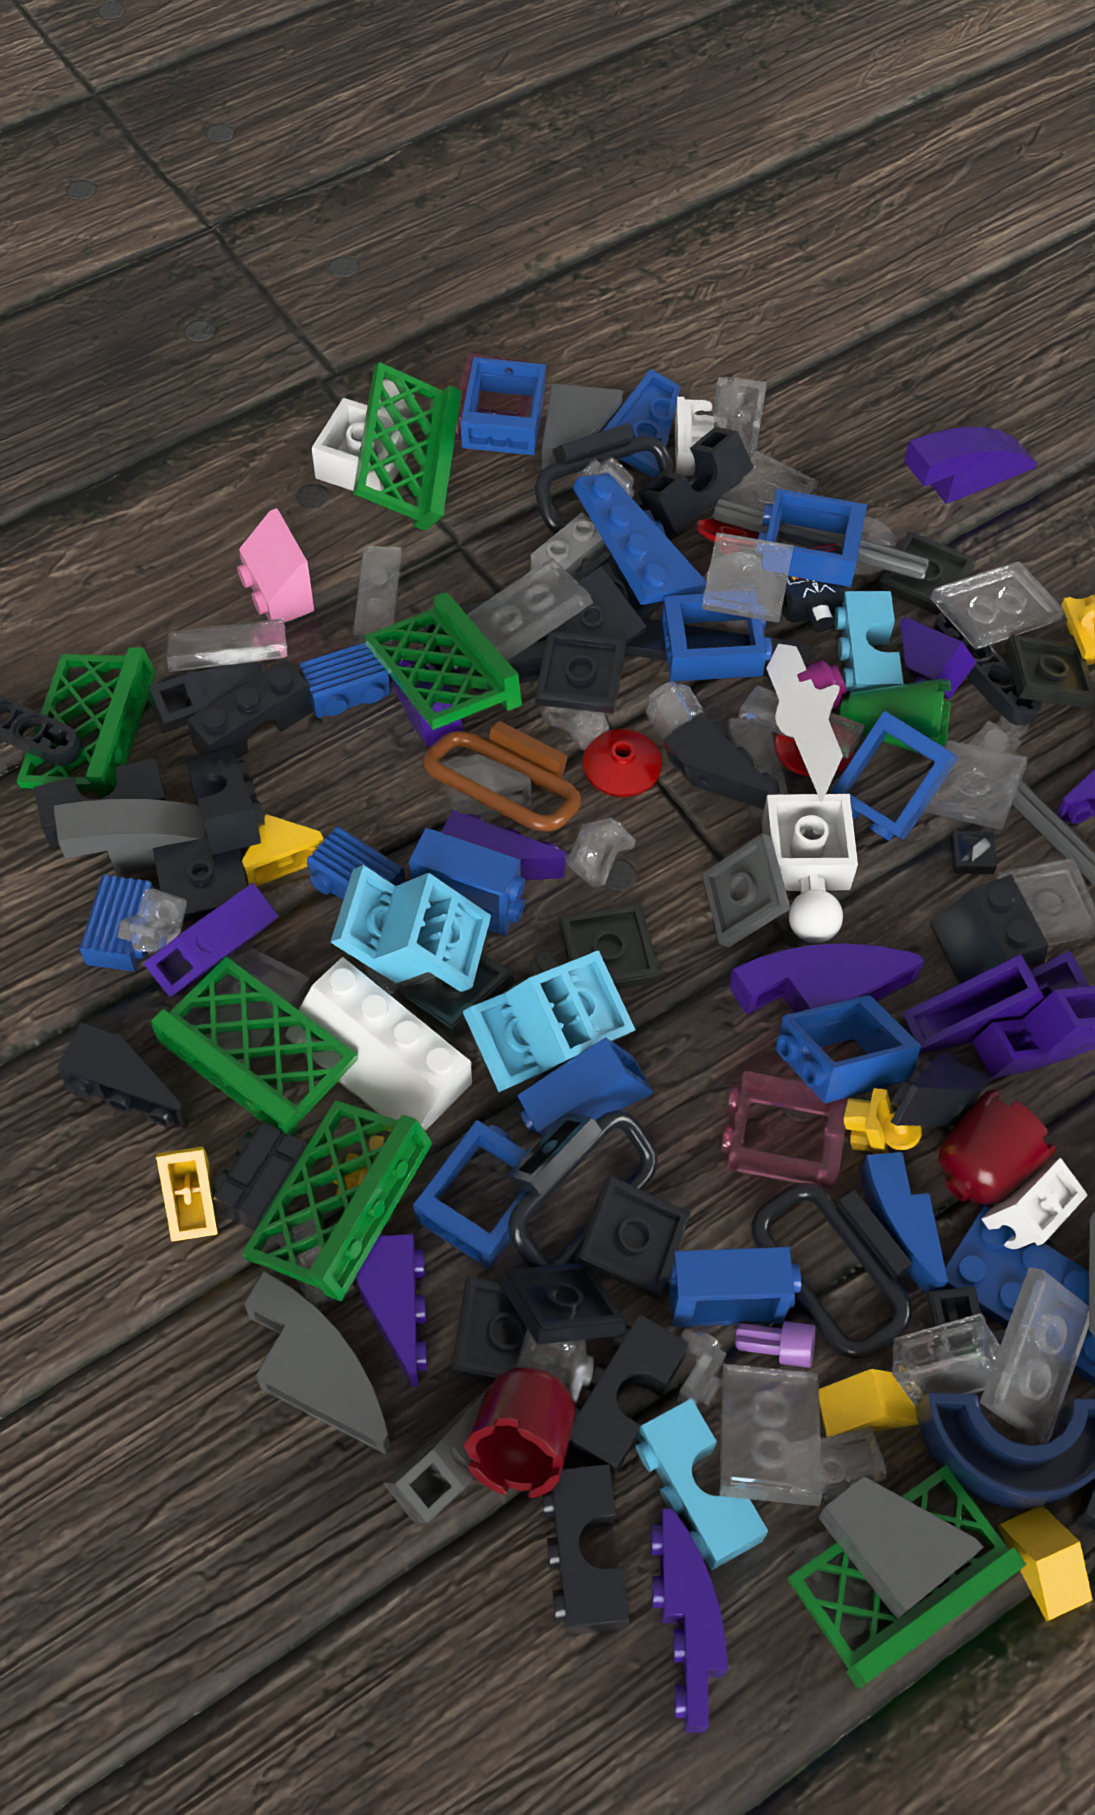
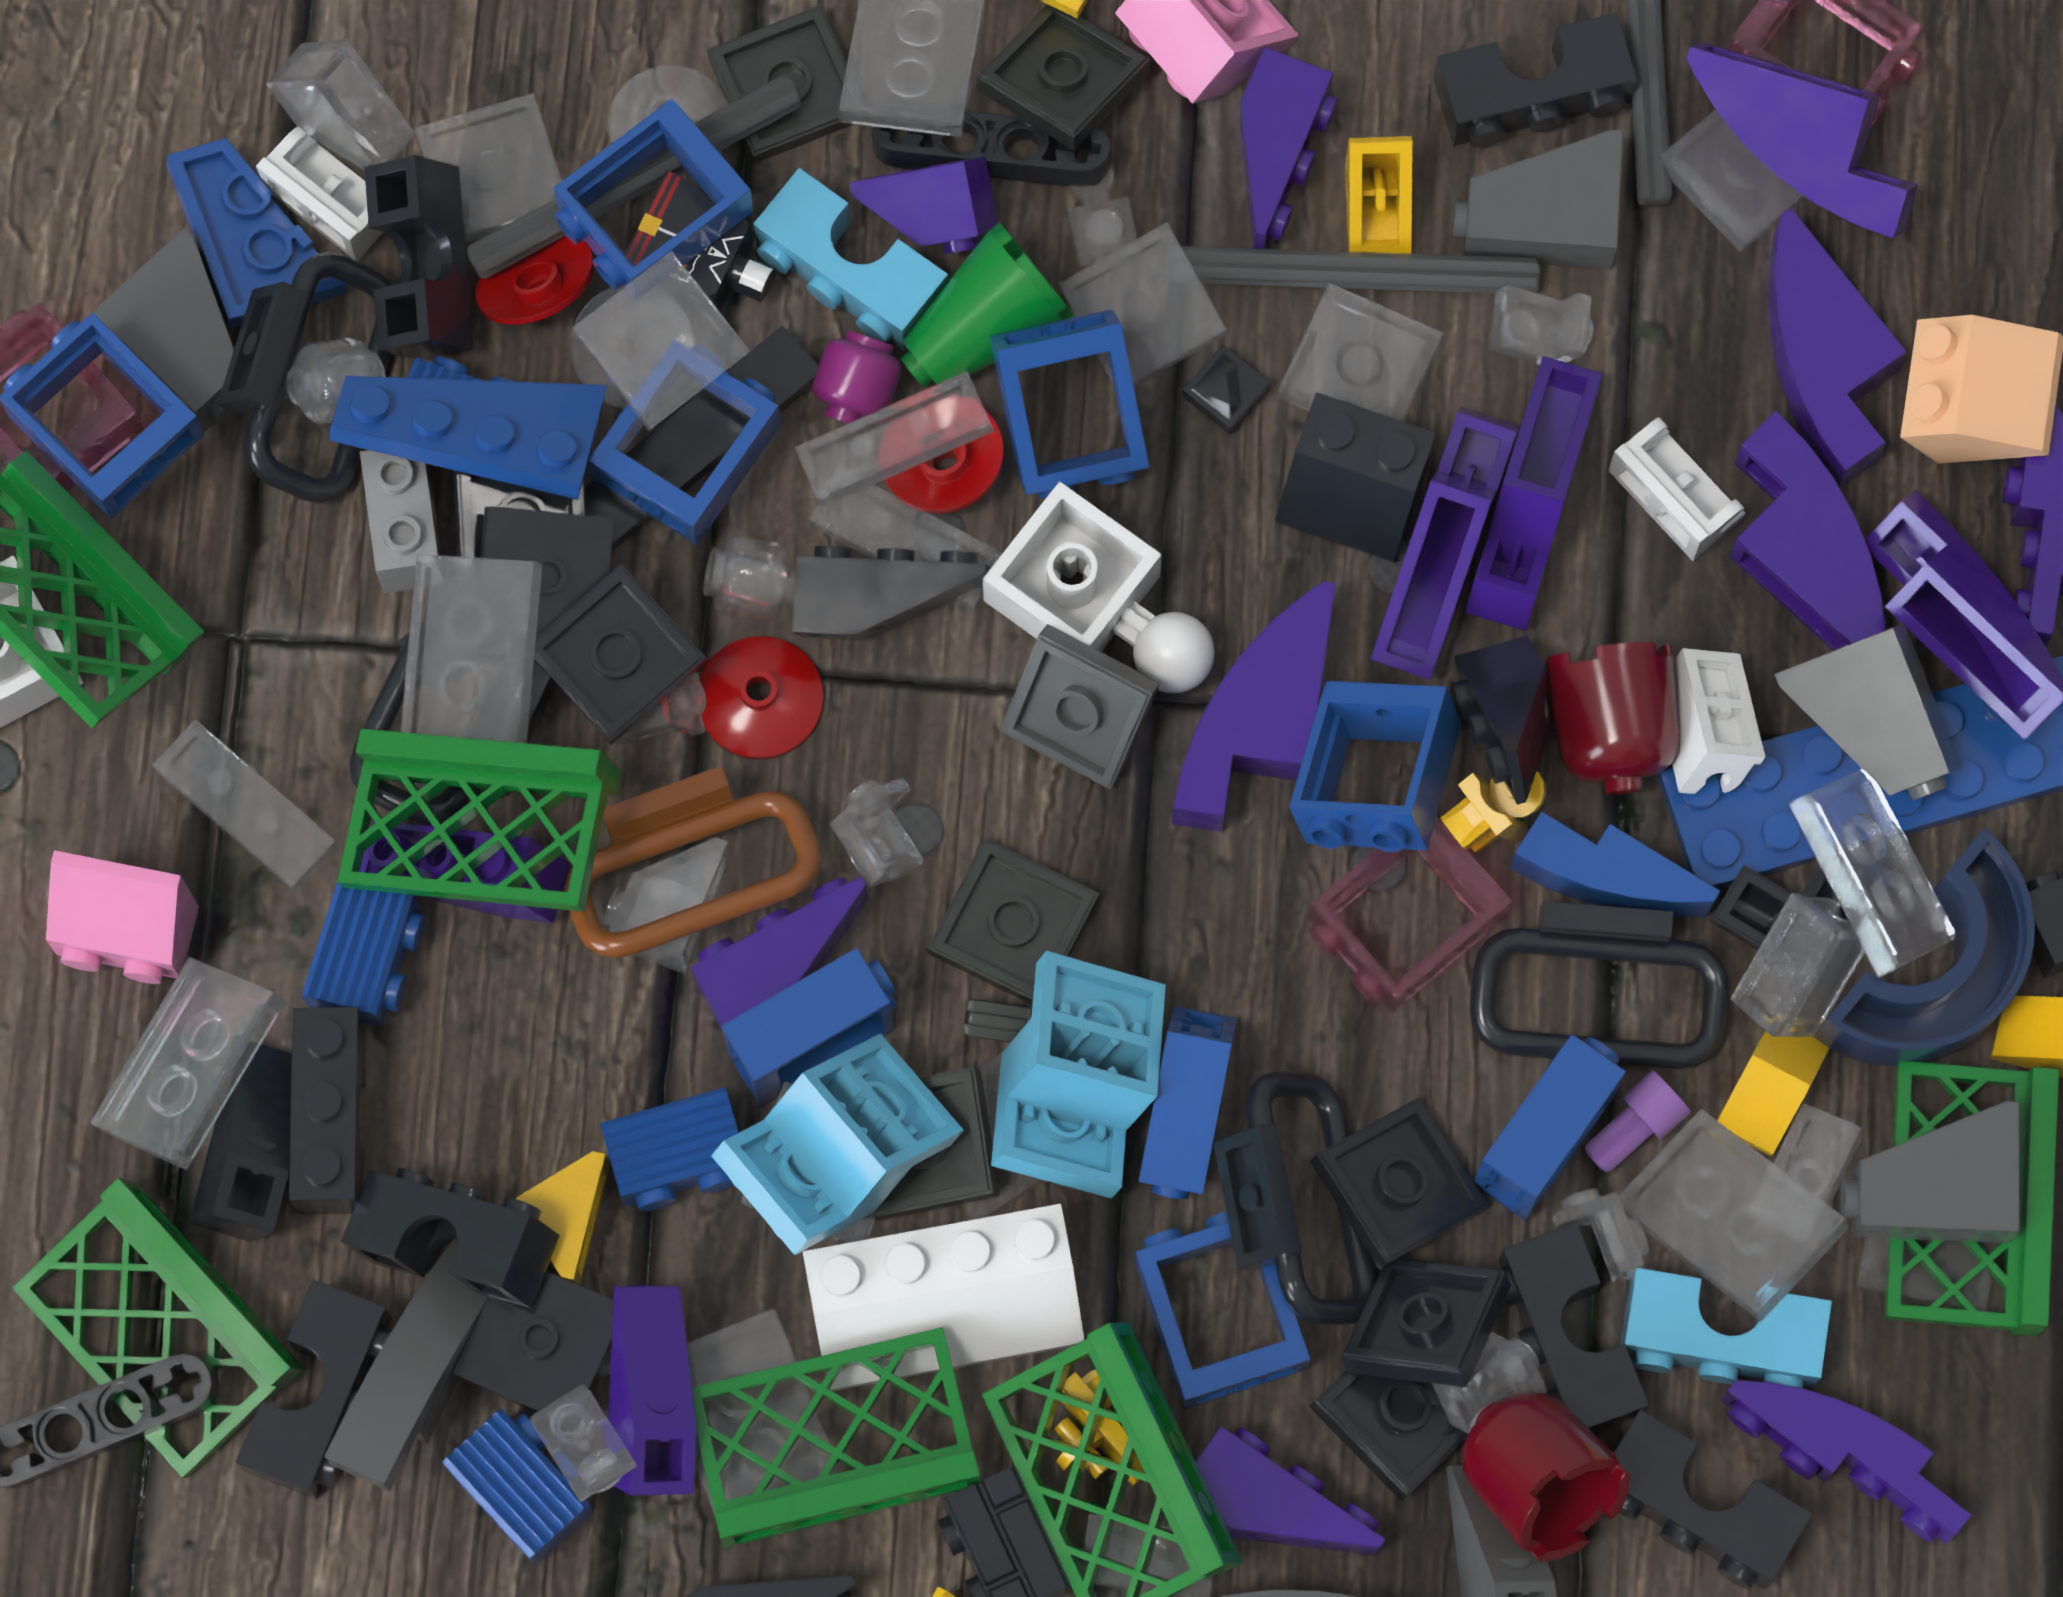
camera: 50 degrees left, 15 degrees up
(805, 715) = (899, 433): white sticker -> none

